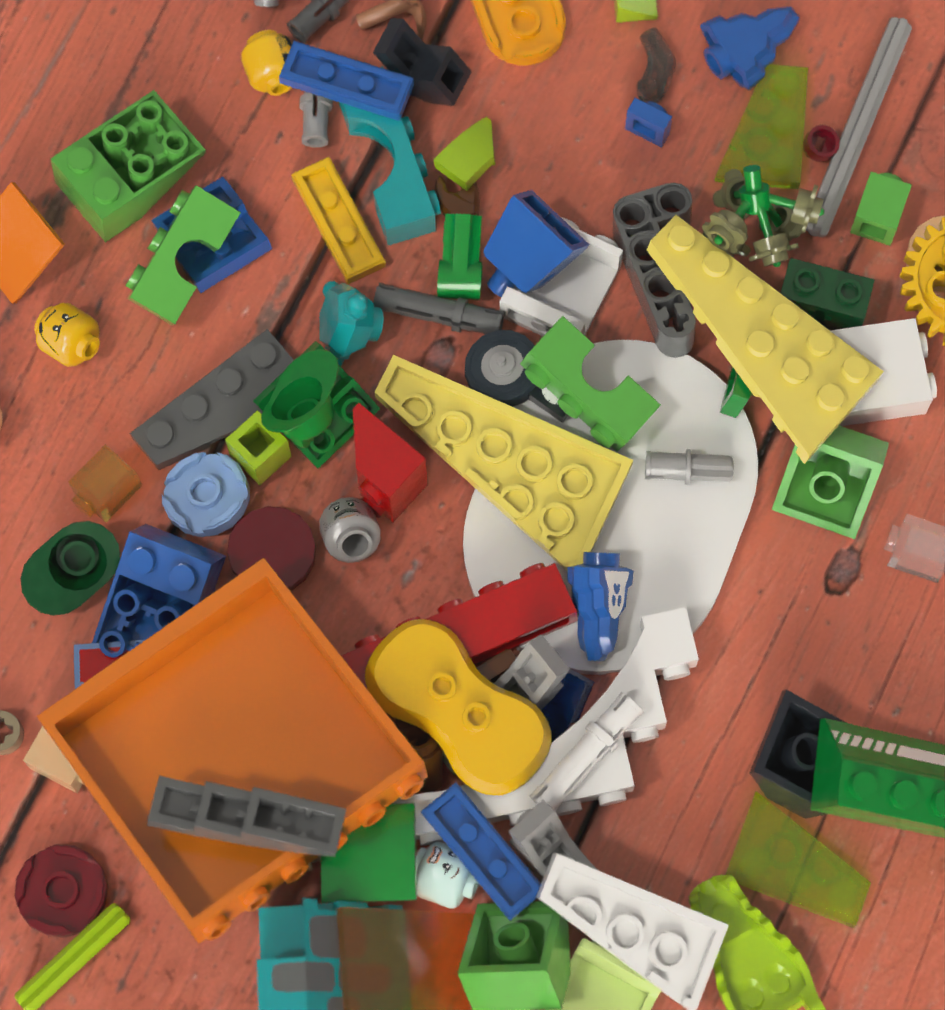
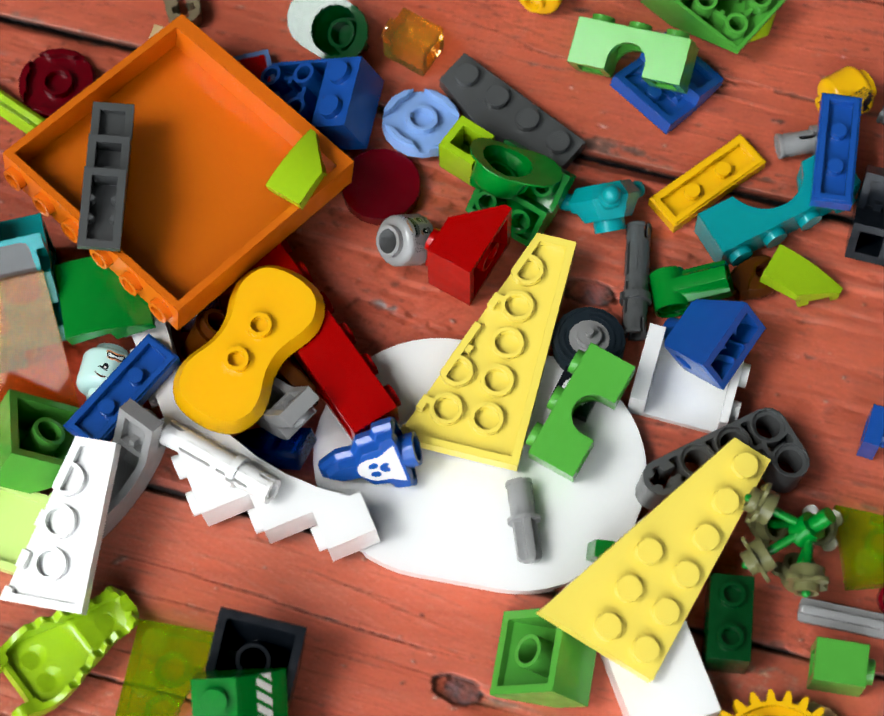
camera: 80 degrees right, 5 degrees down
(274, 610) = (299, 171): none -> lime slope

